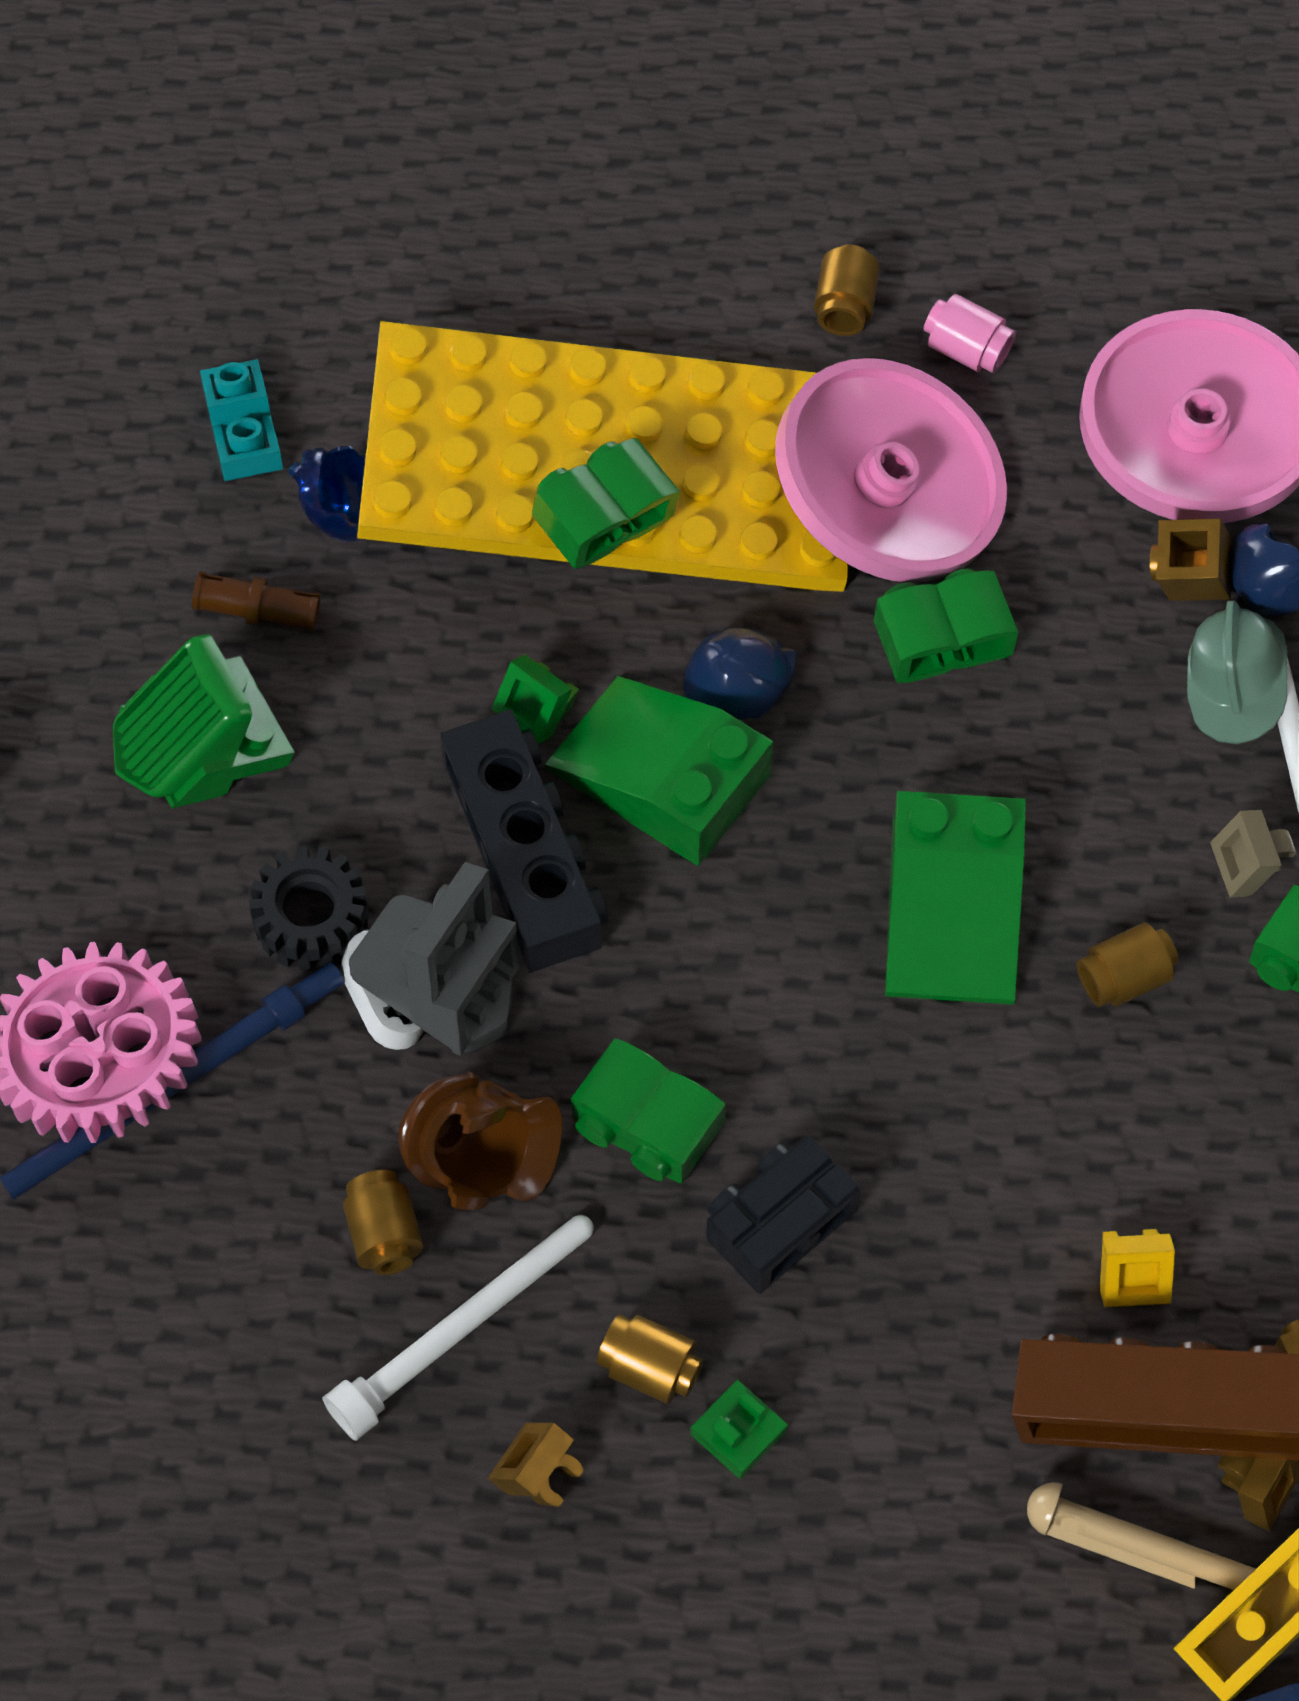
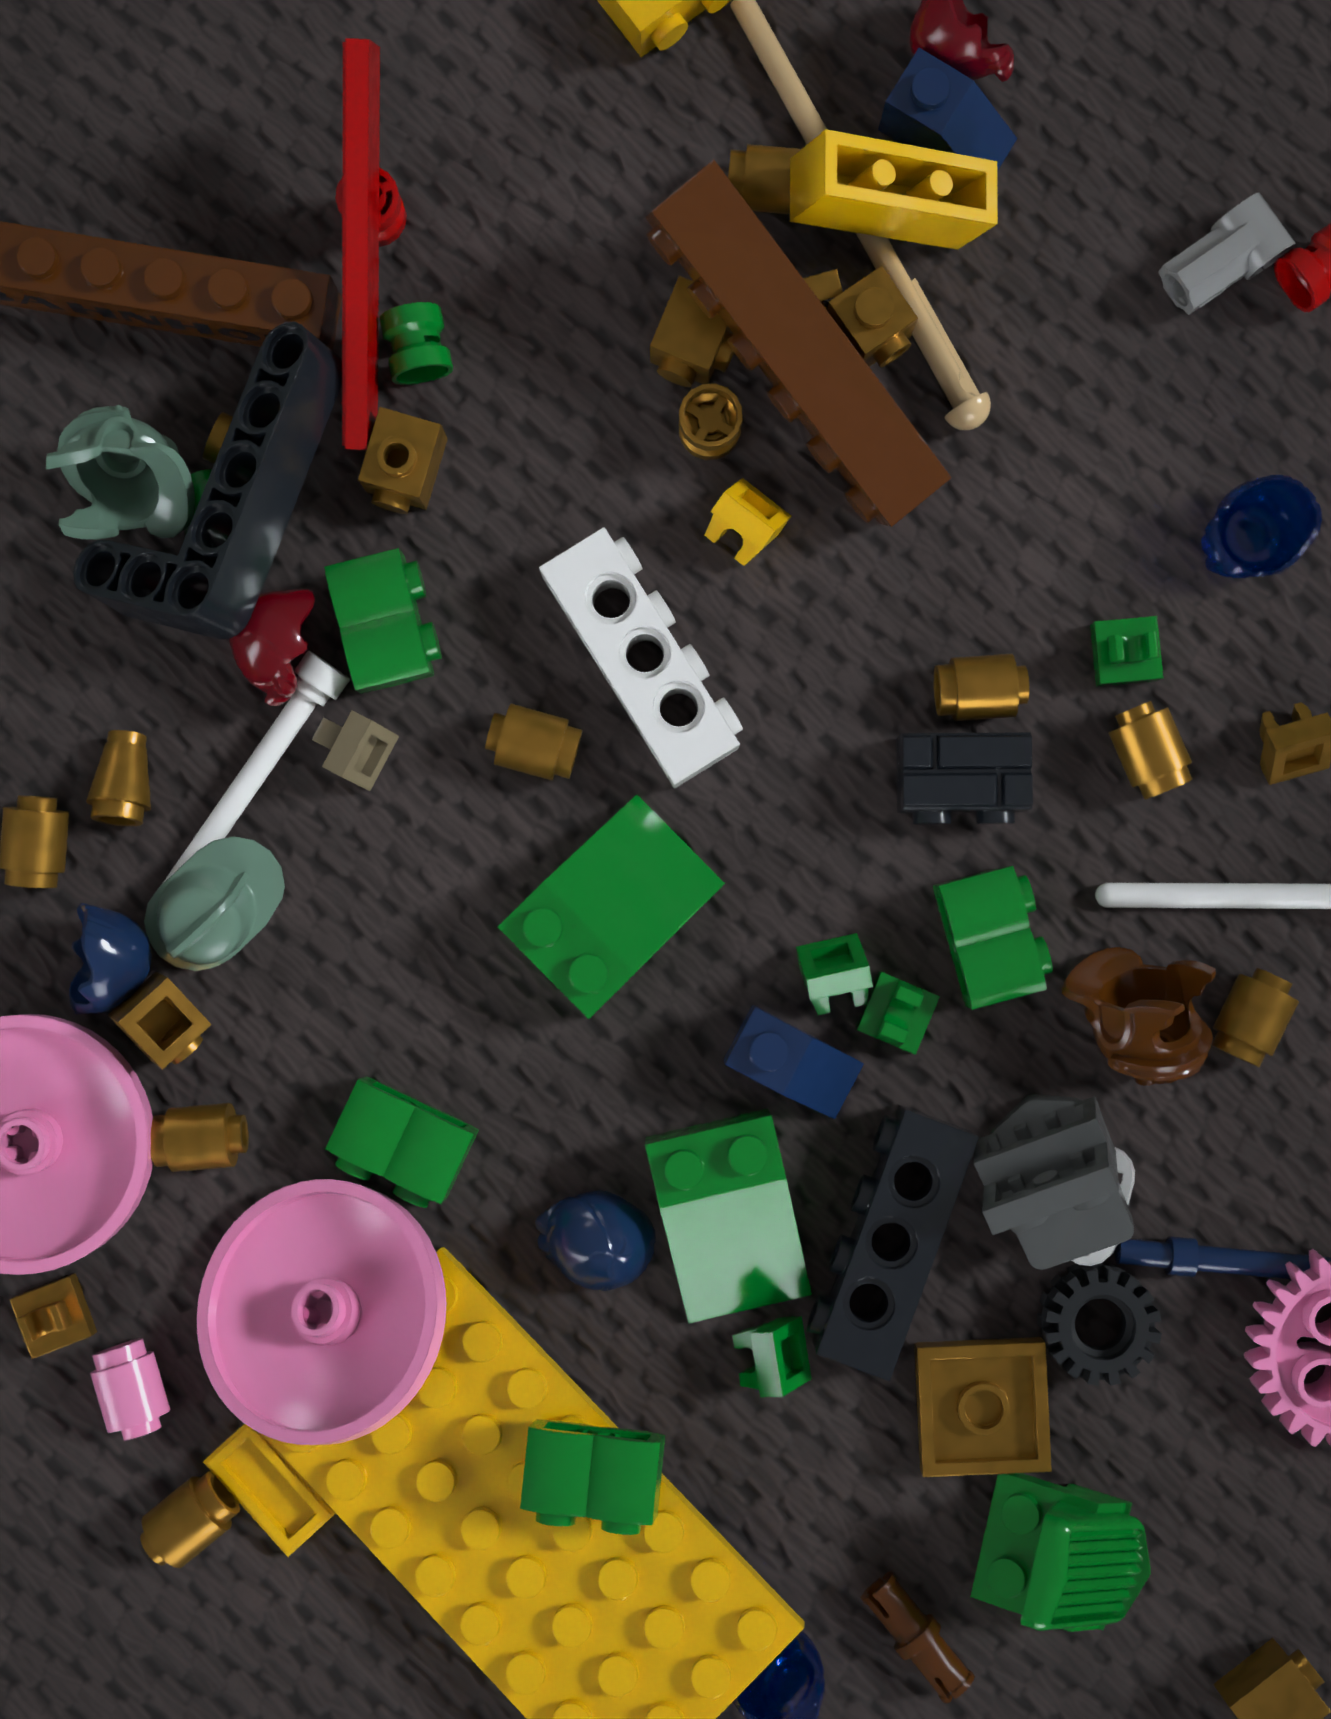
camera: 135 degrees left, 25 degrees up
(347, 783) = (982, 1407): none -> pearl gold plate
(665, 1005) = (897, 1012): none -> green tile
(716, 899) = (792, 1062): none -> dark blue slope
(723, 1607) = (1261, 528): none -> clear blue hair
(744, 990) = (835, 969): none -> green tile
(807, 346) = (269, 1488): none -> yellow tile
(831, 1291) = (980, 687): none -> pearl gold brick
(1066, 339) = (53, 1316): none -> pearl gold tile
(1087, 516) = (198, 1137): none -> pearl gold brick
(1143, 1076) = (575, 582): none -> white brick
(1194, 1499) = (875, 318): none -> pearl gold brick
(1245, 1301) = (714, 410): none -> pearl gold wheel

